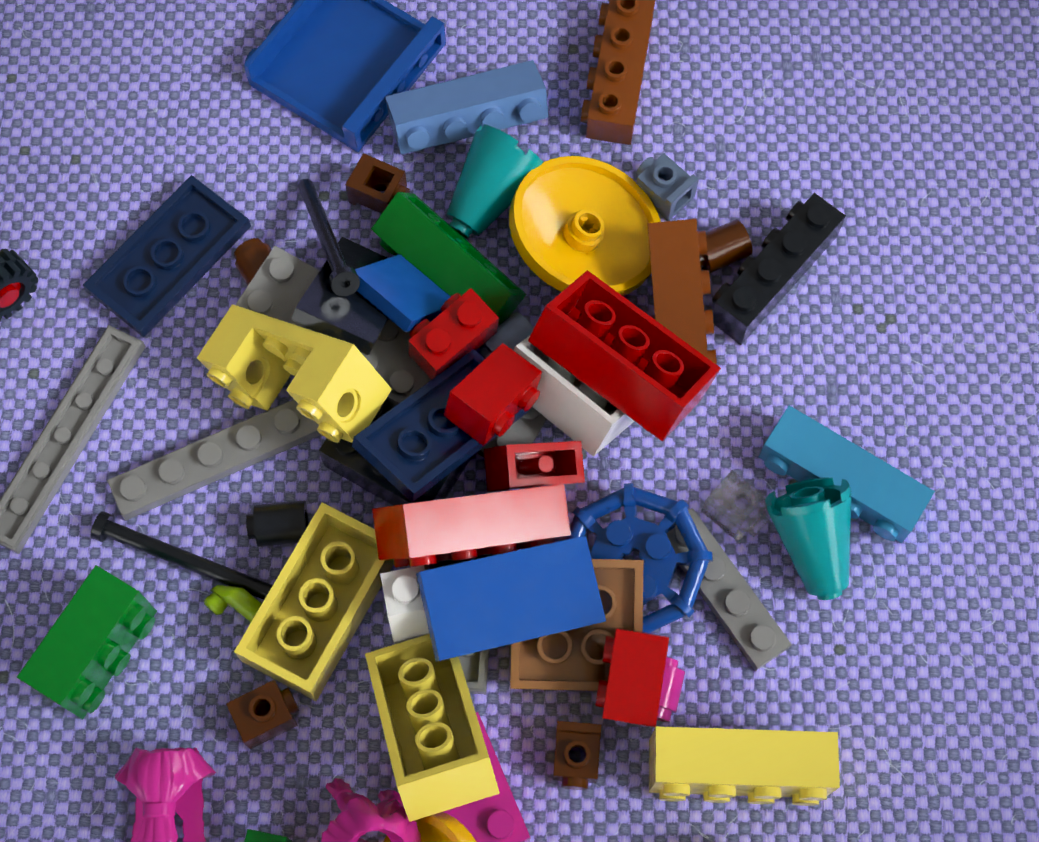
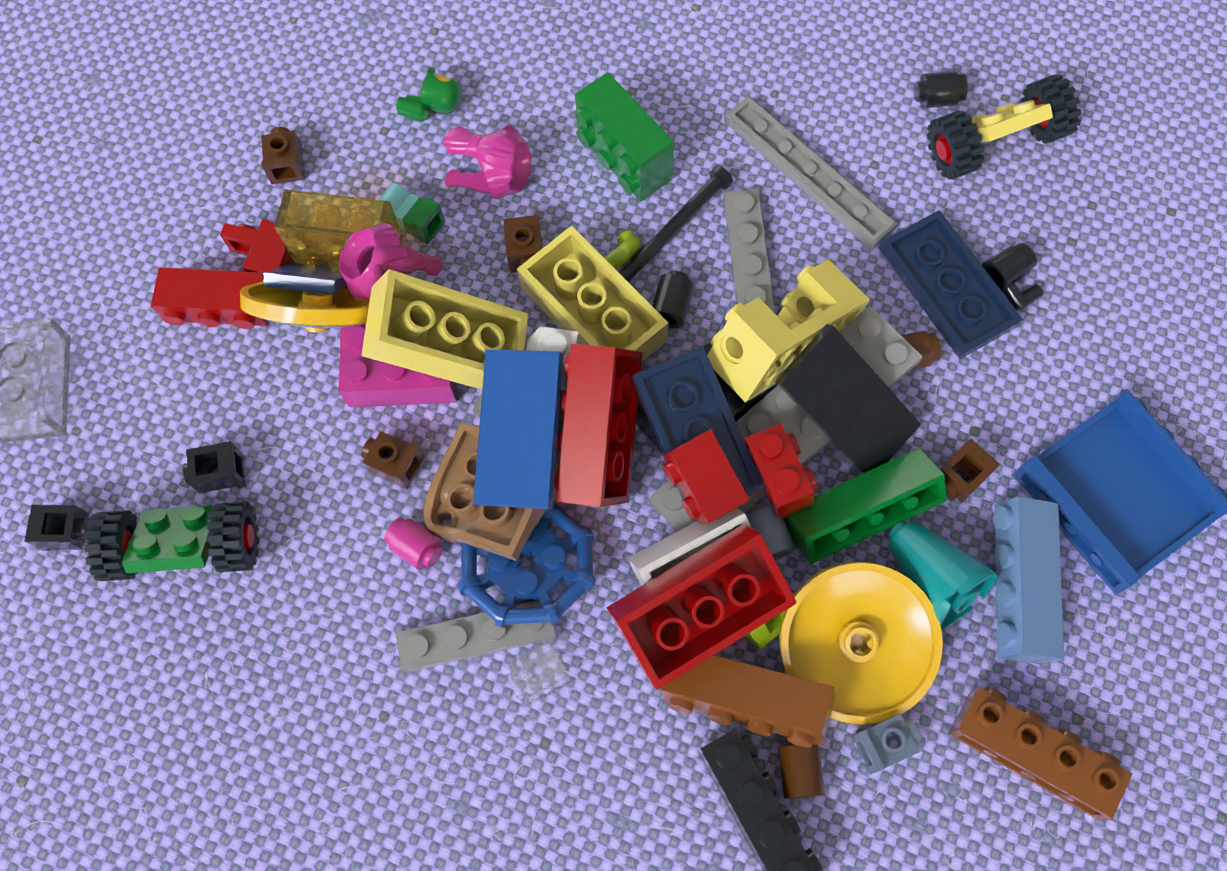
camera: 115 degrees right, 0 degrees up
(133, 203) = (1011, 267): none -> black piece
(343, 278) = (857, 385): black bar -> none
(401, 291) = (839, 444): blue tile -> none
(534, 465) = (637, 504): red brick -> none
(634, 677) = (419, 511): red brick -> none
(743, 763) = (317, 576): light yellow brick -> none
(816, 532) = (485, 725): teal cone -> none
(878, 490) = (527, 788): dark azure brick -> none

